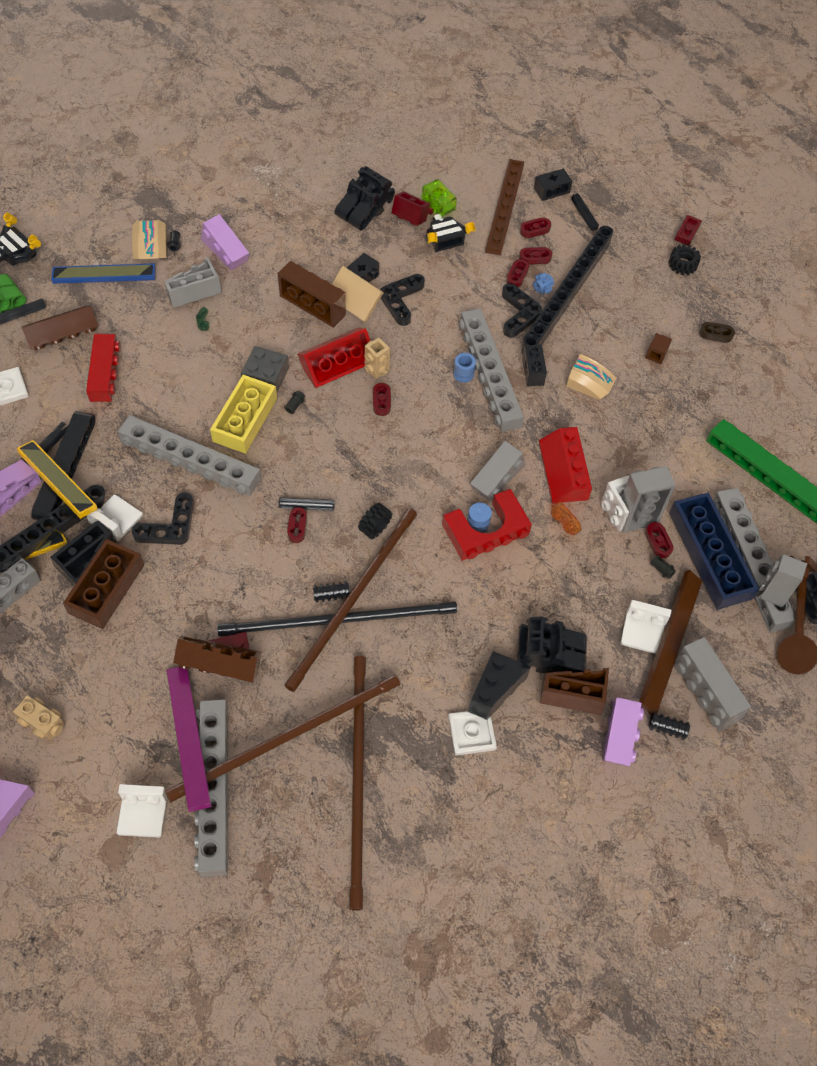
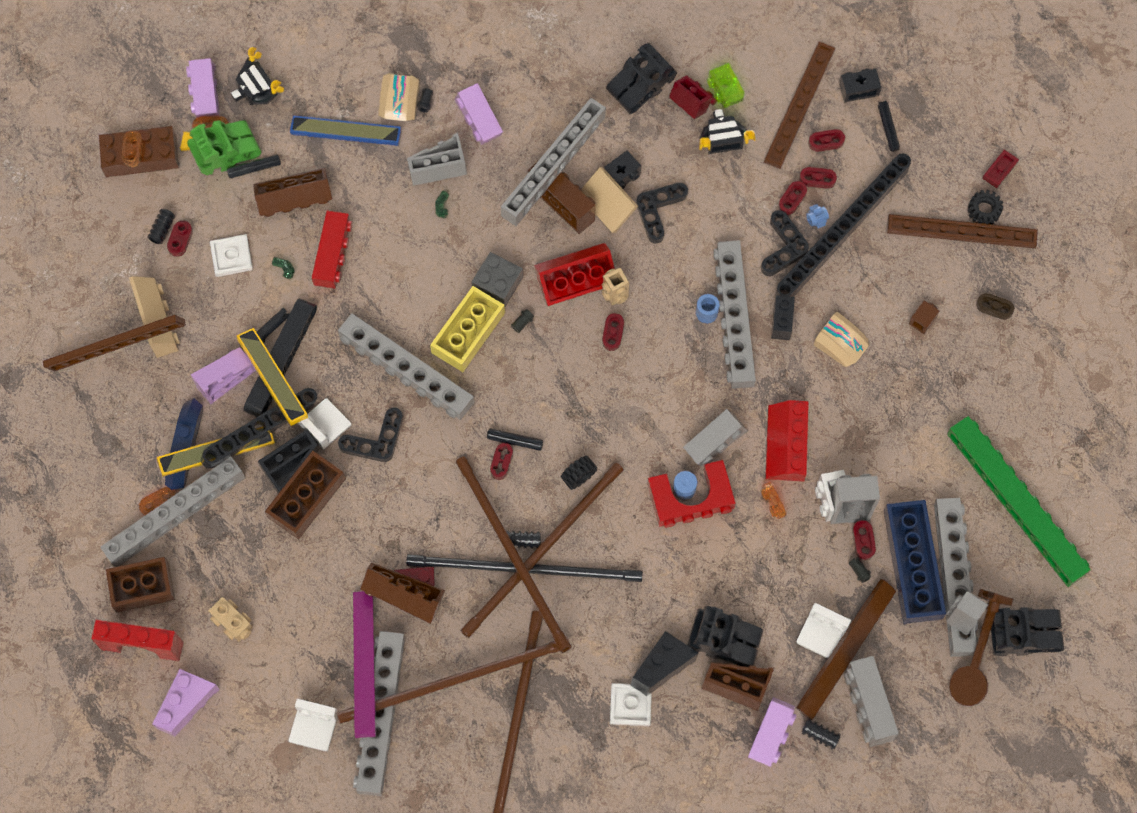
camera: 15 degrees right, 10 degrees up
(58, 386) = (286, 266): none -> clear green arm
(299, 260) = (553, 162): none -> light grey brick
(386, 668) = (558, 635): none -> reddish brown piece
(670, 280) = (962, 231): none -> reddish brown tile

